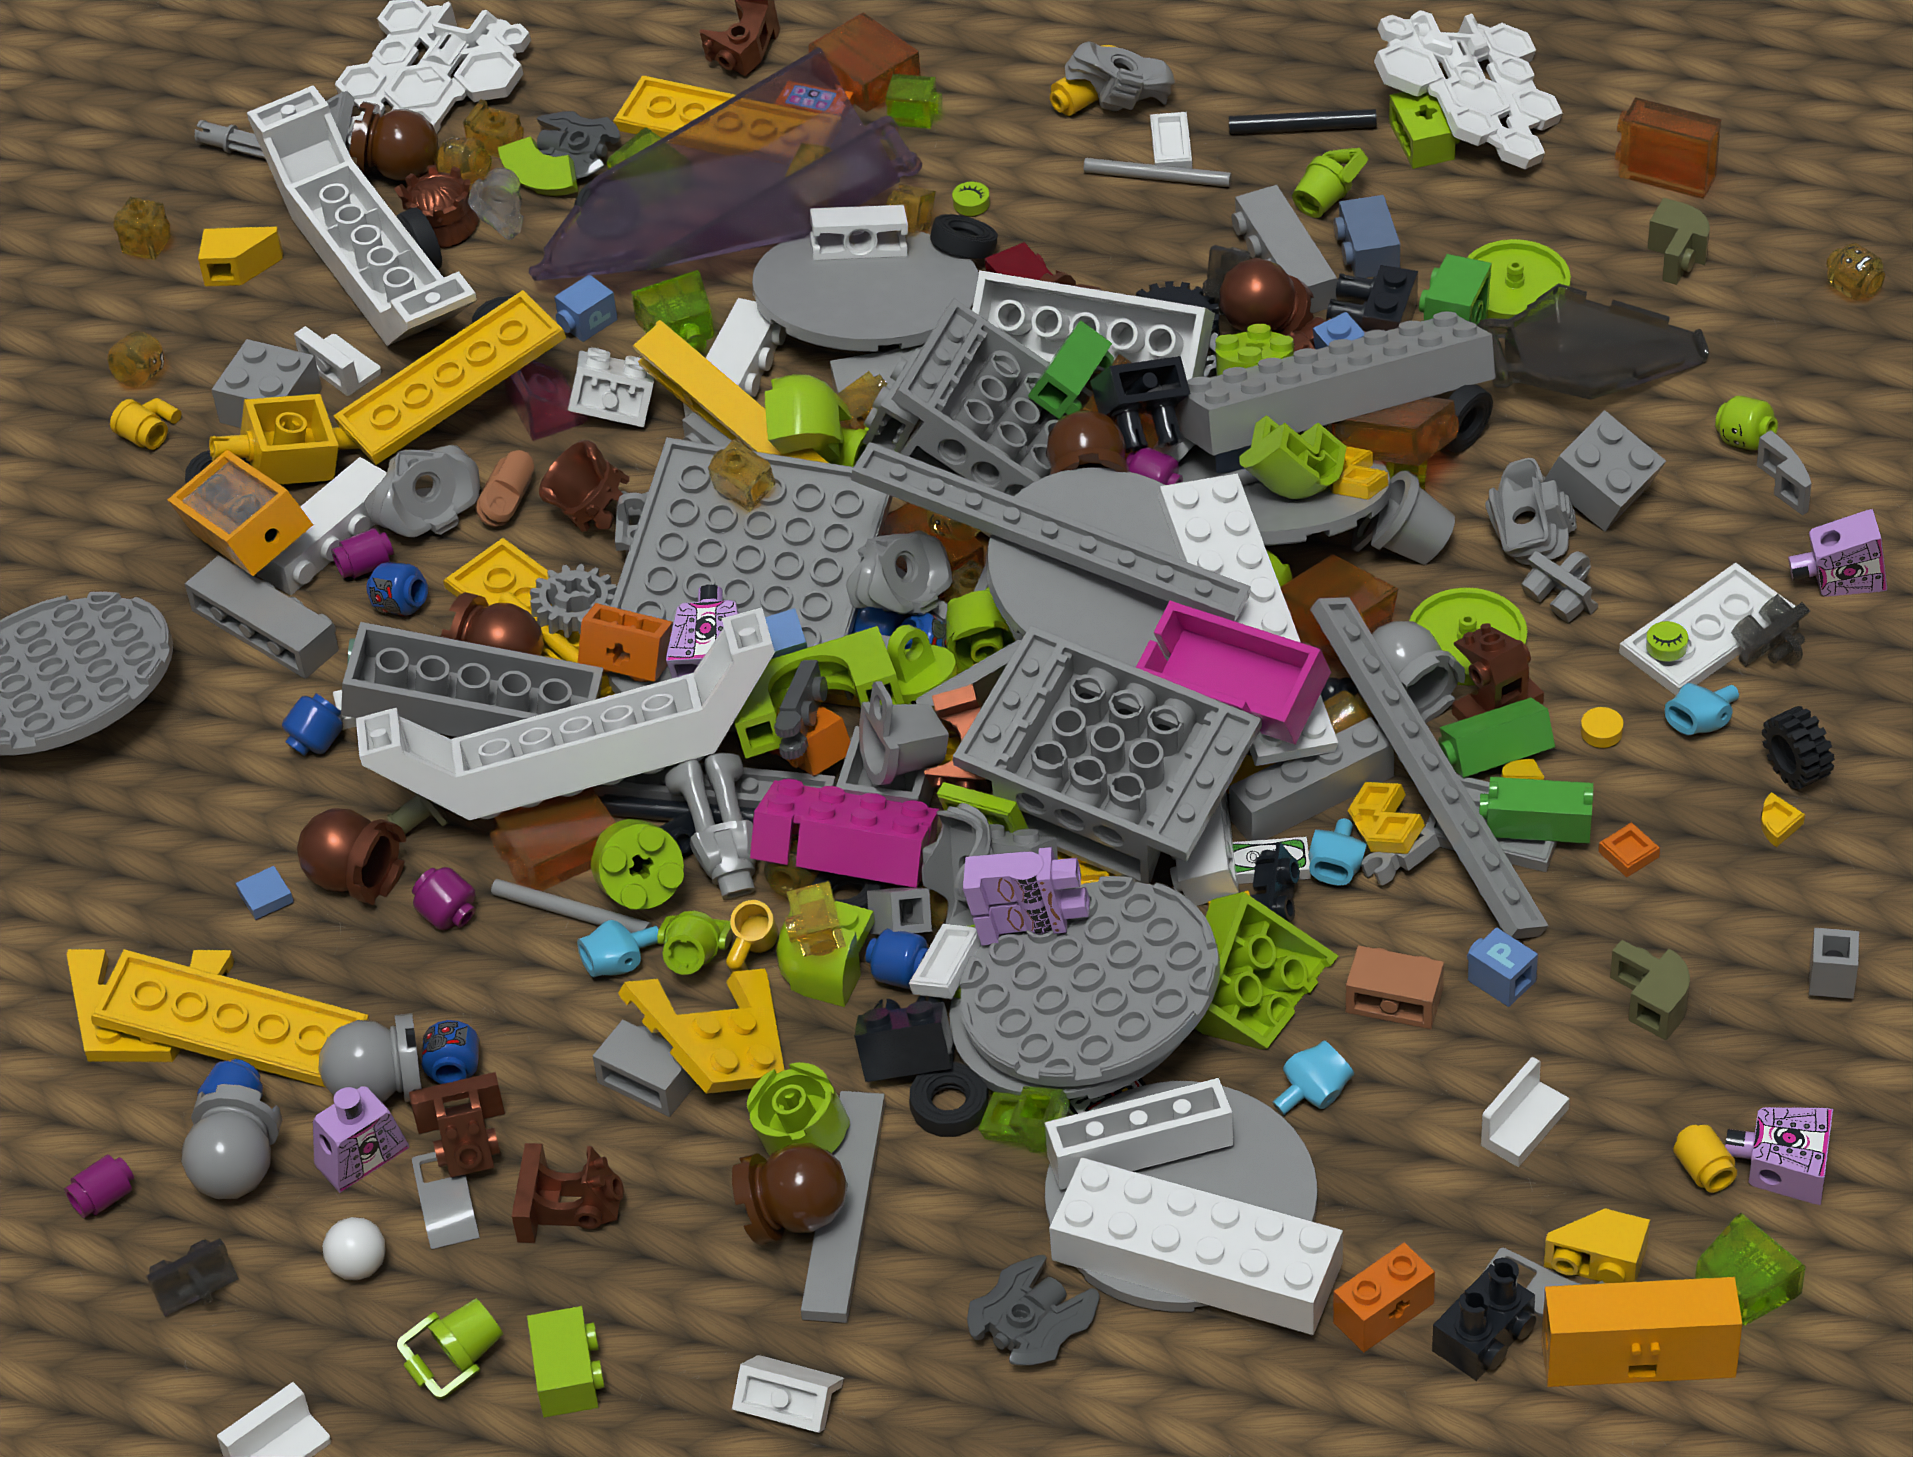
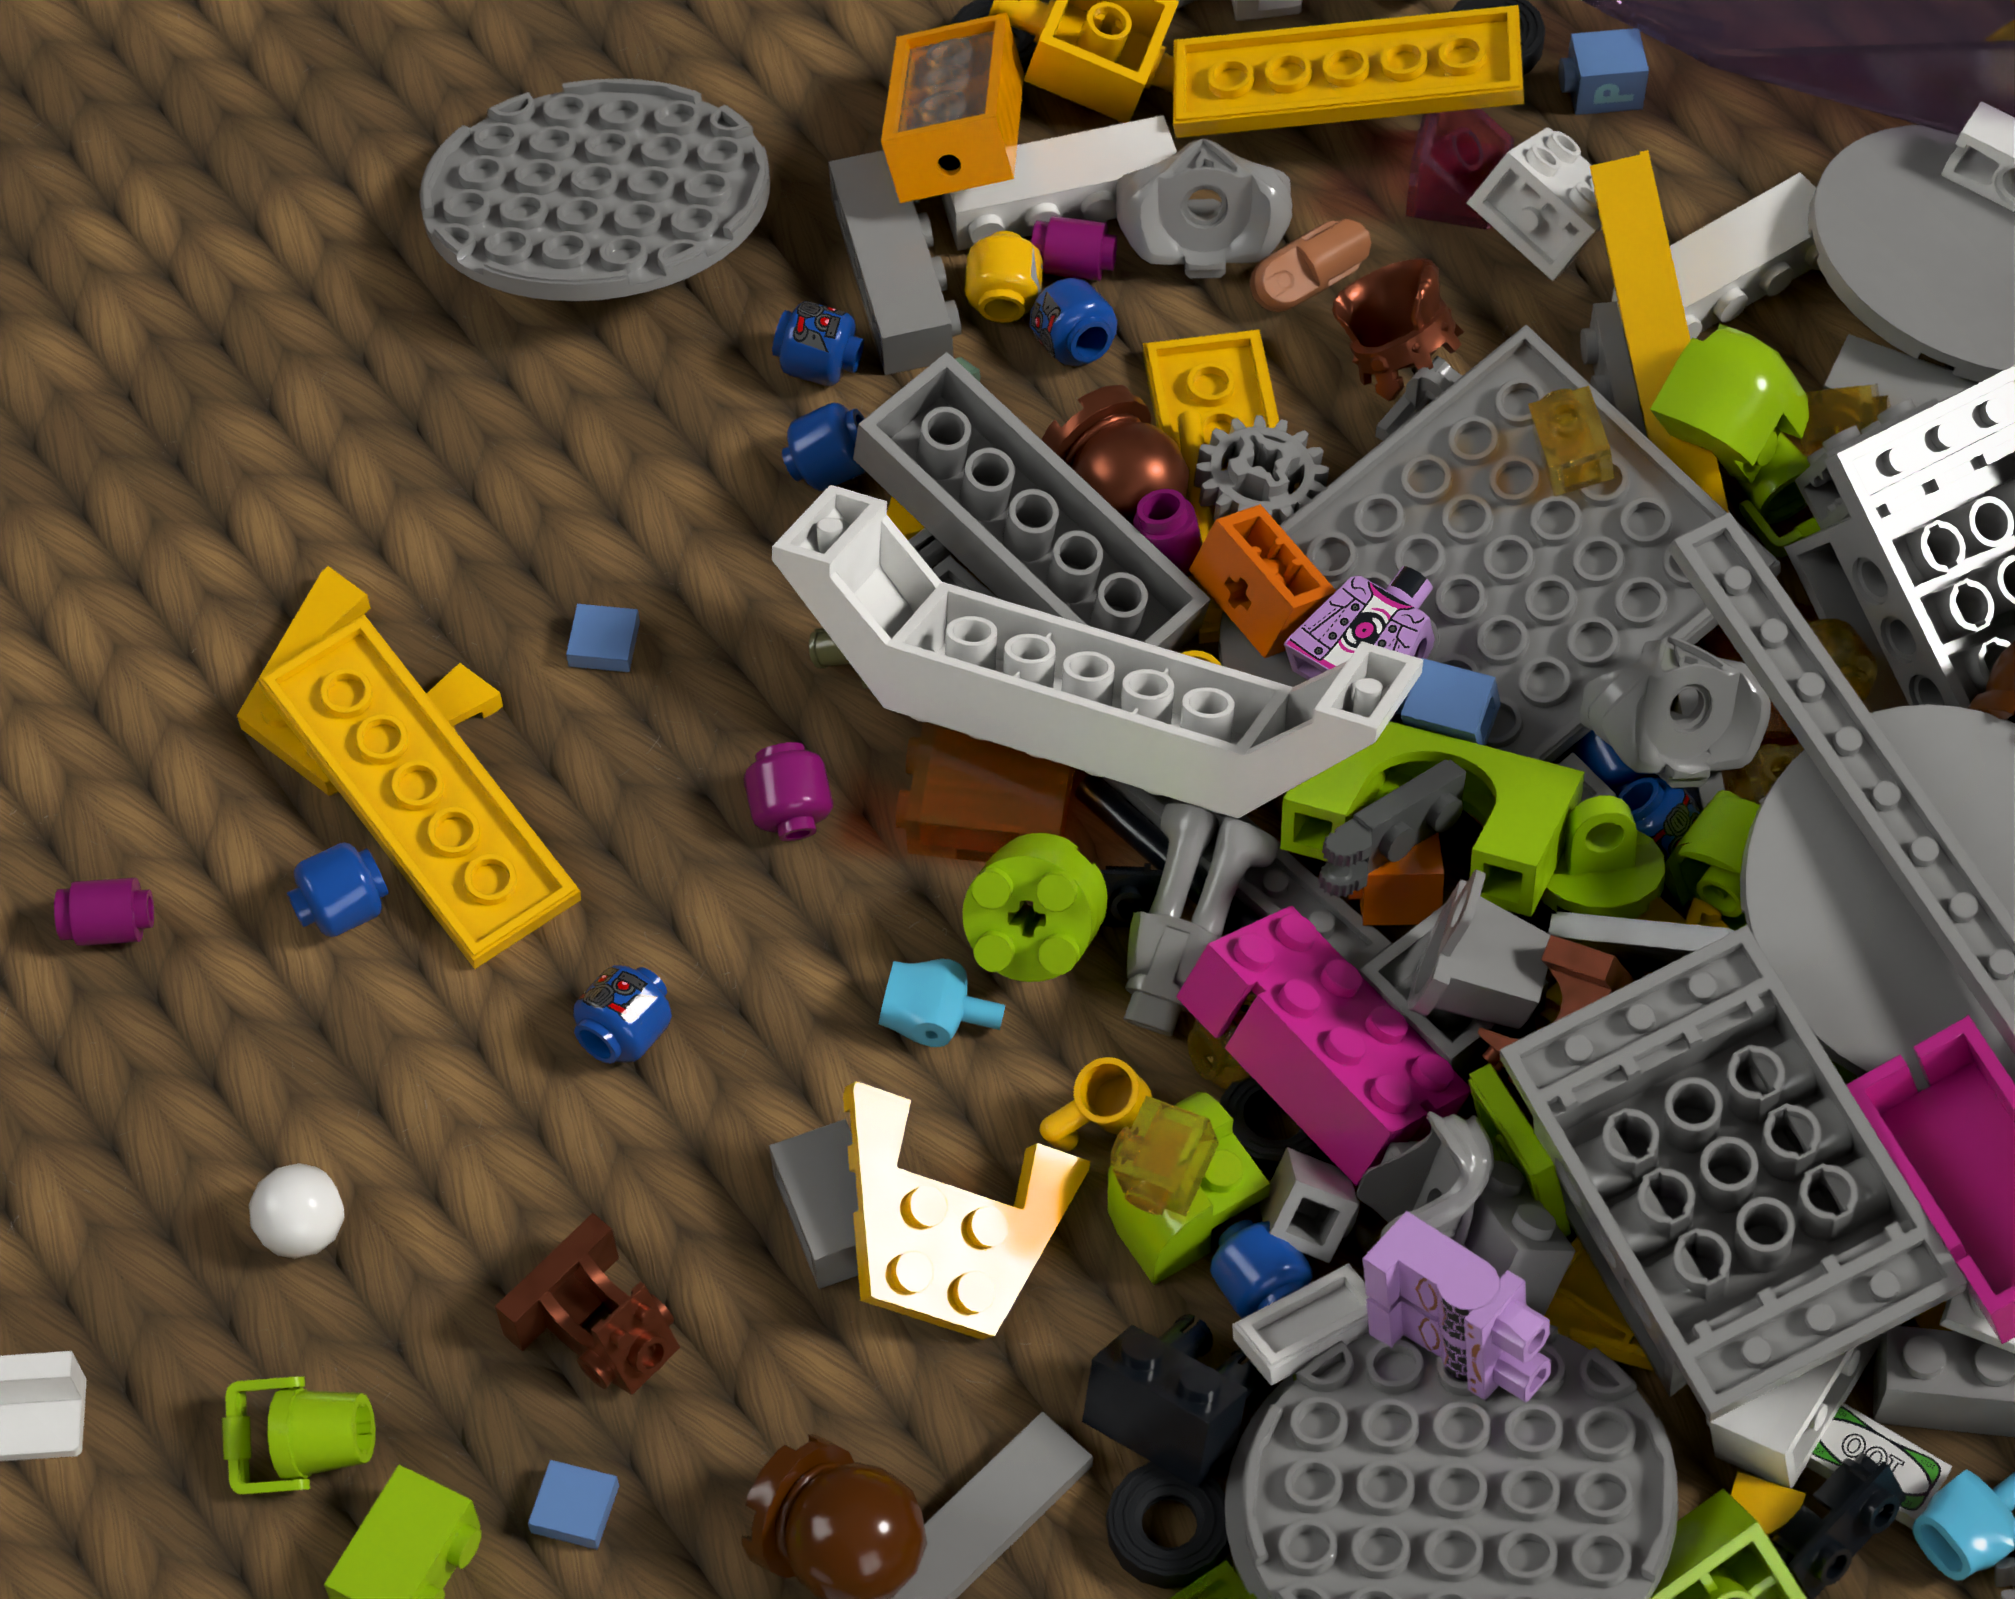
camera: 35 degrees right, 10 degrees up
(191, 1276) = (100, 1113): clear smoke hips -> none
(230, 1141) = (262, 968): light grey tile -> none
(258, 679) = (817, 343): none -> blue head
(336, 588) = (1003, 276): none -> yellow head
(351, 853) = (723, 659): copper tile -> none
(354, 1137) = (424, 1056): lavender torso -> none
(372, 1057) = (510, 967): light grey tile -> none
(445, 1207) = (463, 1215): light grey piece -> none
(464, 1139) = (564, 1104): copper tile -> none
(550, 642) = (1170, 526): none -> magenta brick
(564, 906) = (929, 902): light grey bar -> none
(630, 1287) = (573, 1504): none -> medium blue tile
(680, 305) = (1715, 146): clear neon green torso -> none
(692, 940) = (1024, 1059): lime piece -> none
(797, 1108) = (945, 1417): lime brick -> none

